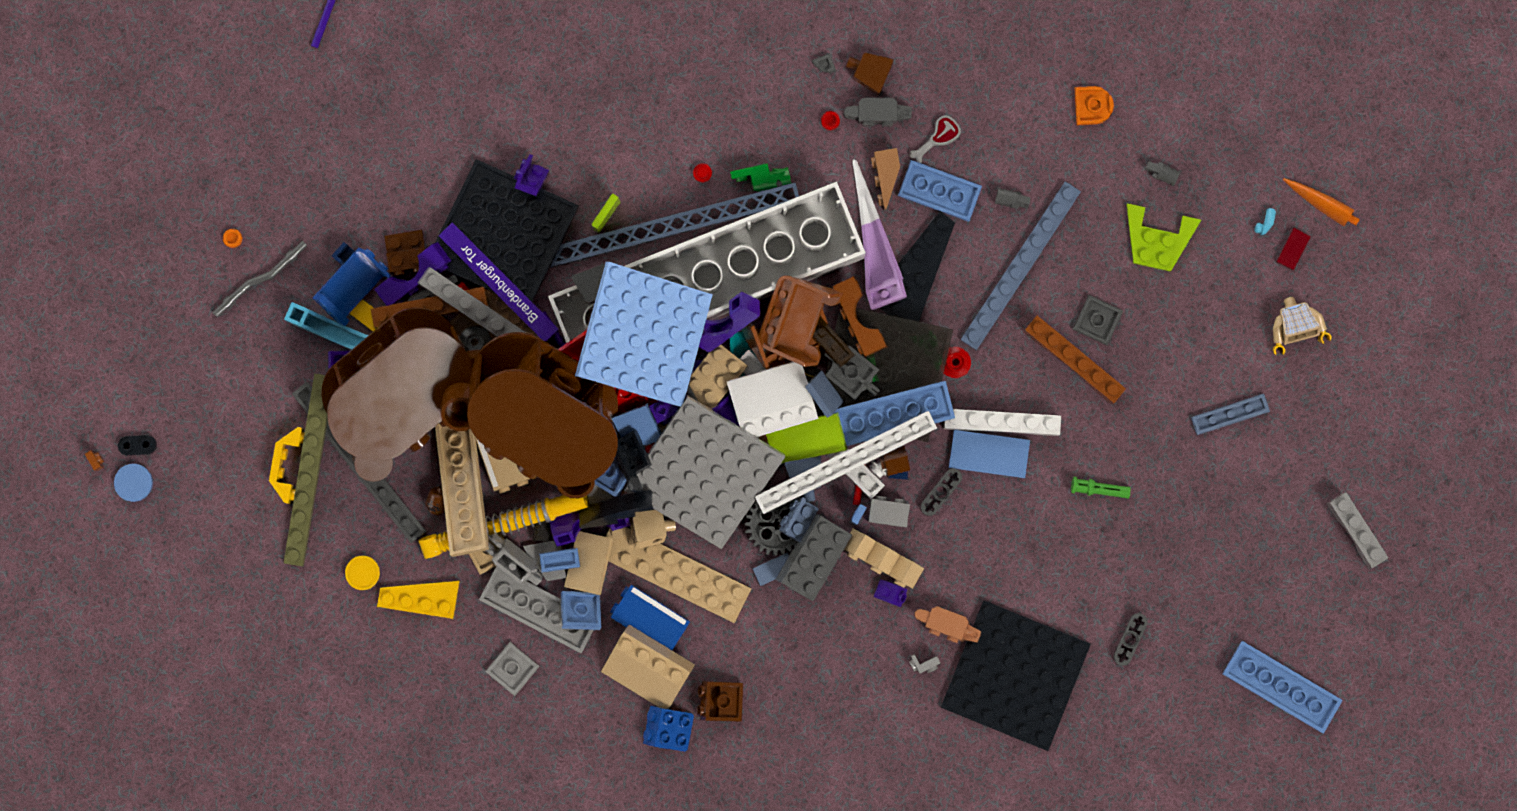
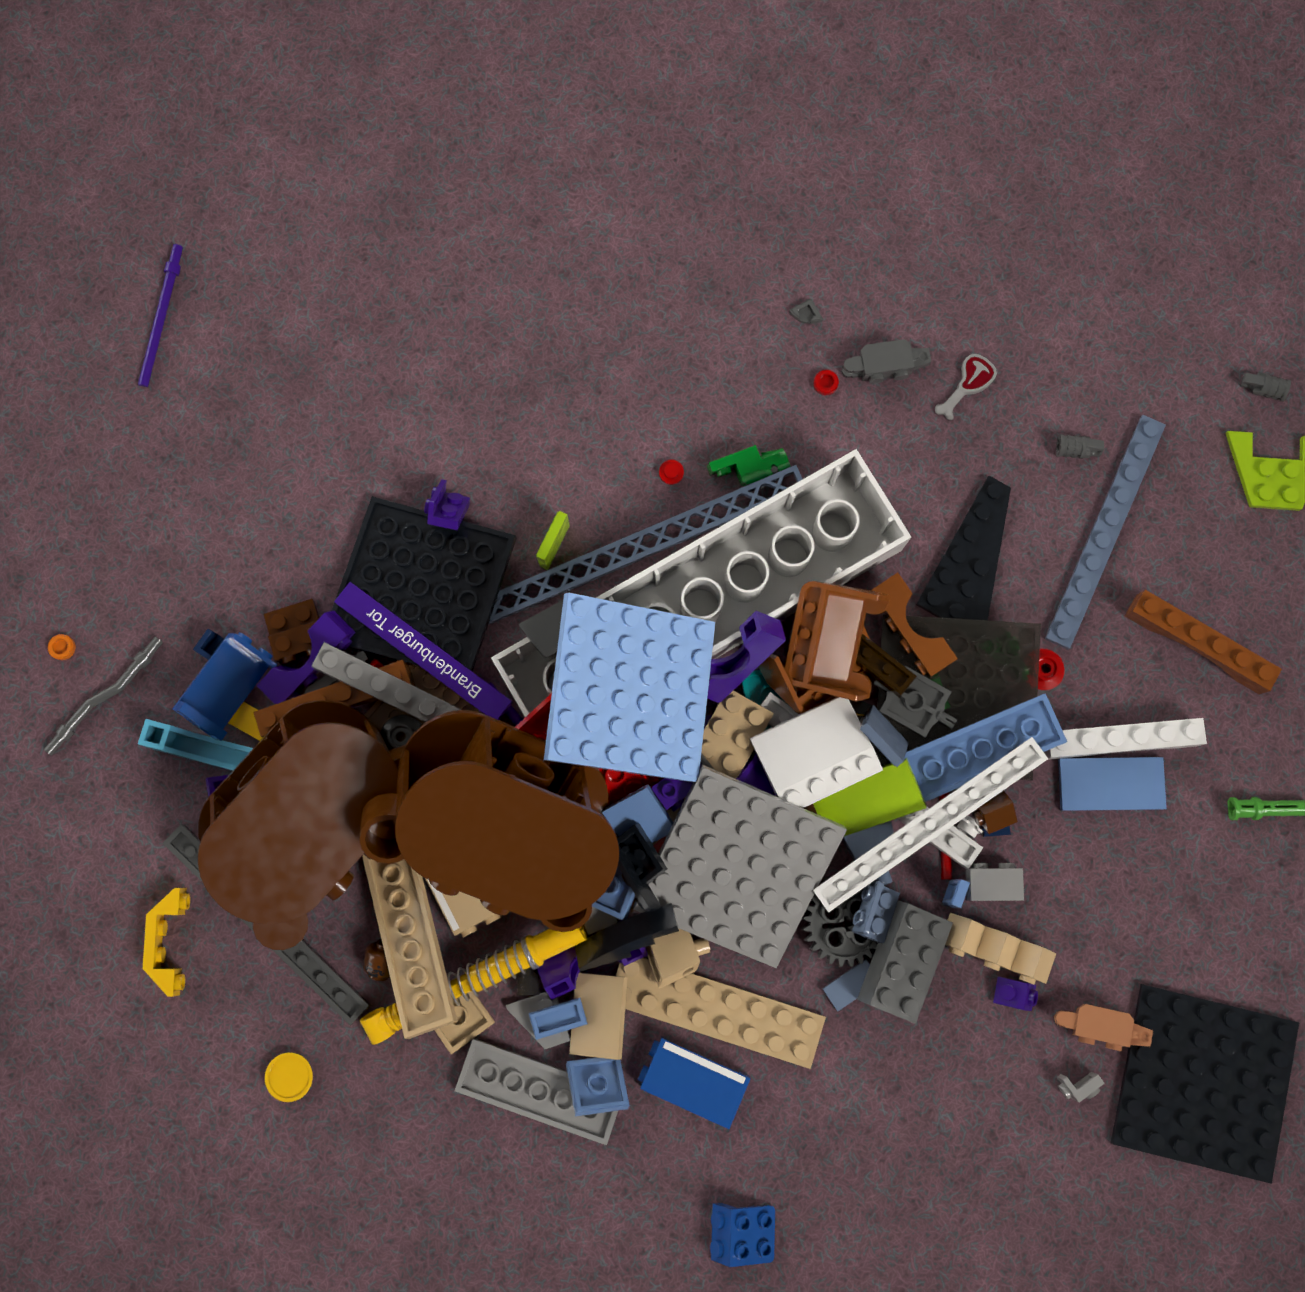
camera: 10 degrees left, 5 degrees down
(307, 477) = (195, 966): olive plate -> none
(428, 599) = (380, 1100): yellow wing -> none
(512, 668) = (514, 1181): light grey tile -> none
(513, 560) = (494, 1029): light grey hinge -> none
(647, 667) = (703, 1152): tan slope -> none
(720, 701) = (809, 1184): reddish brown plate -> none
(871, 71) = (868, 311): reddish brown torso -> none
(882, 272) = (931, 565): lavender plate -> none
(887, 167) = (912, 427): medium nougat slope -> none
(933, 492) = (1068, 843): dark grey beam -> none
(939, 190) = (983, 450): medium blue tile -> none
(1092, 105) = (1157, 315): orange tile -> none
(1097, 320) = (1219, 586): dark grey tile -> none

